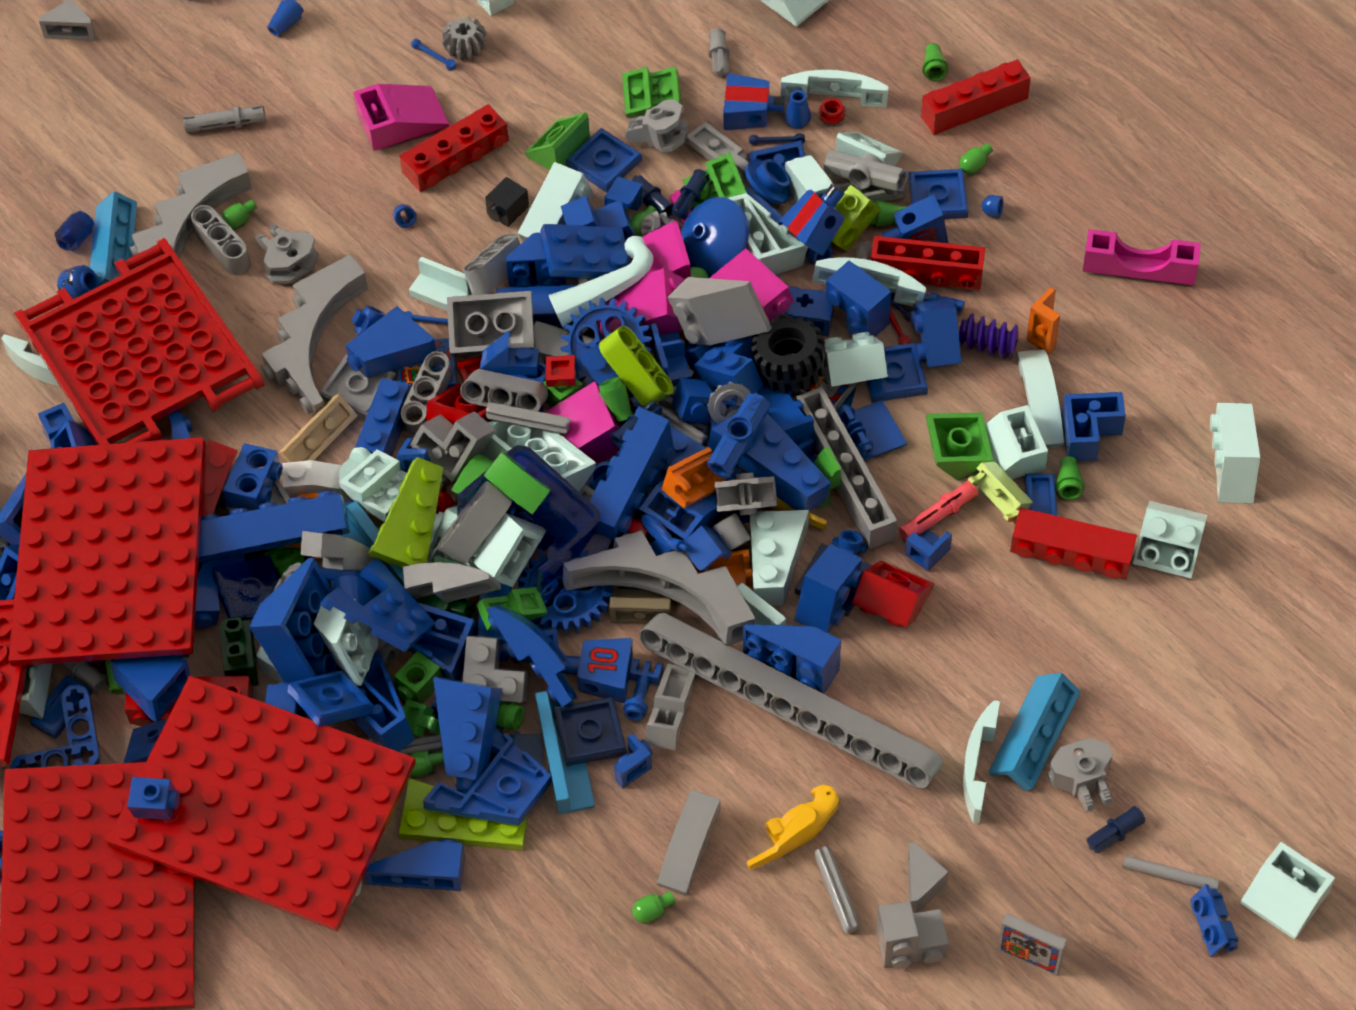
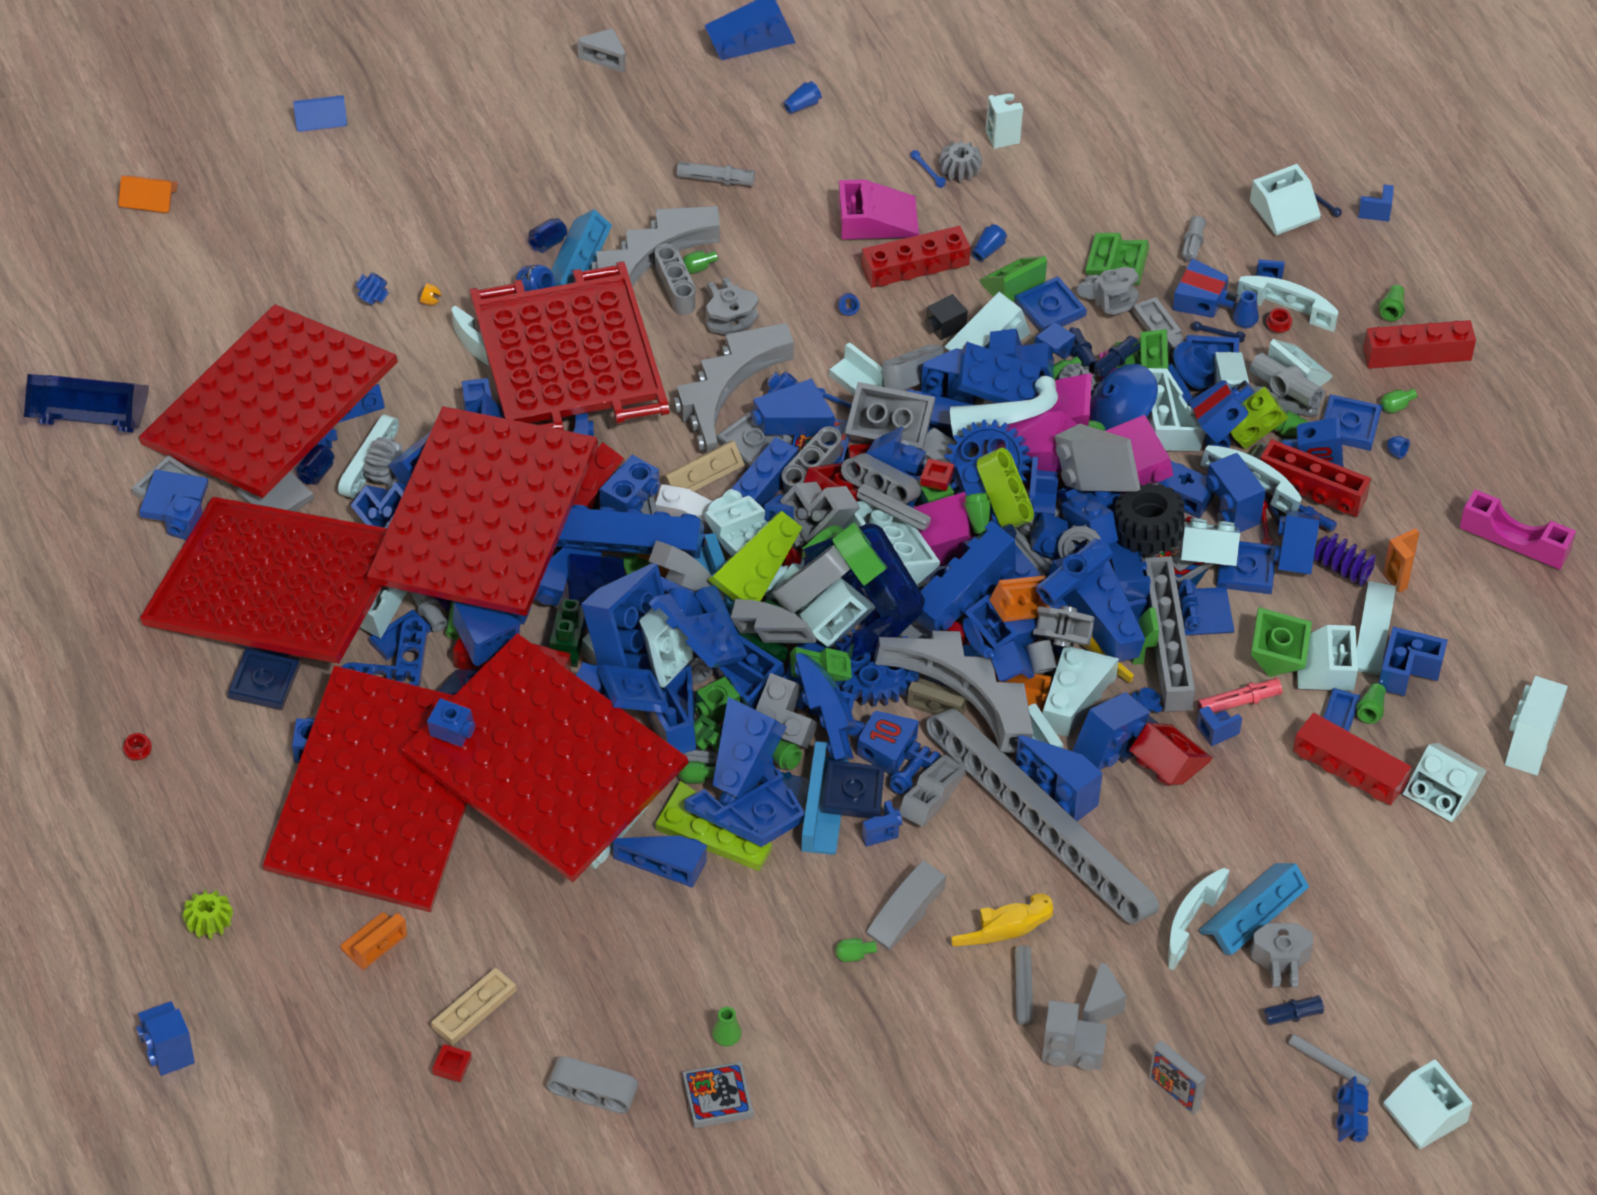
camera: 15 degrees right, 5 degrees down
(521, 112) = (989, 242): none -> blue cone
(804, 62) = (1270, 268): none -> blue slope
(1001, 490) = (1302, 692): yellowish green hinge -> none

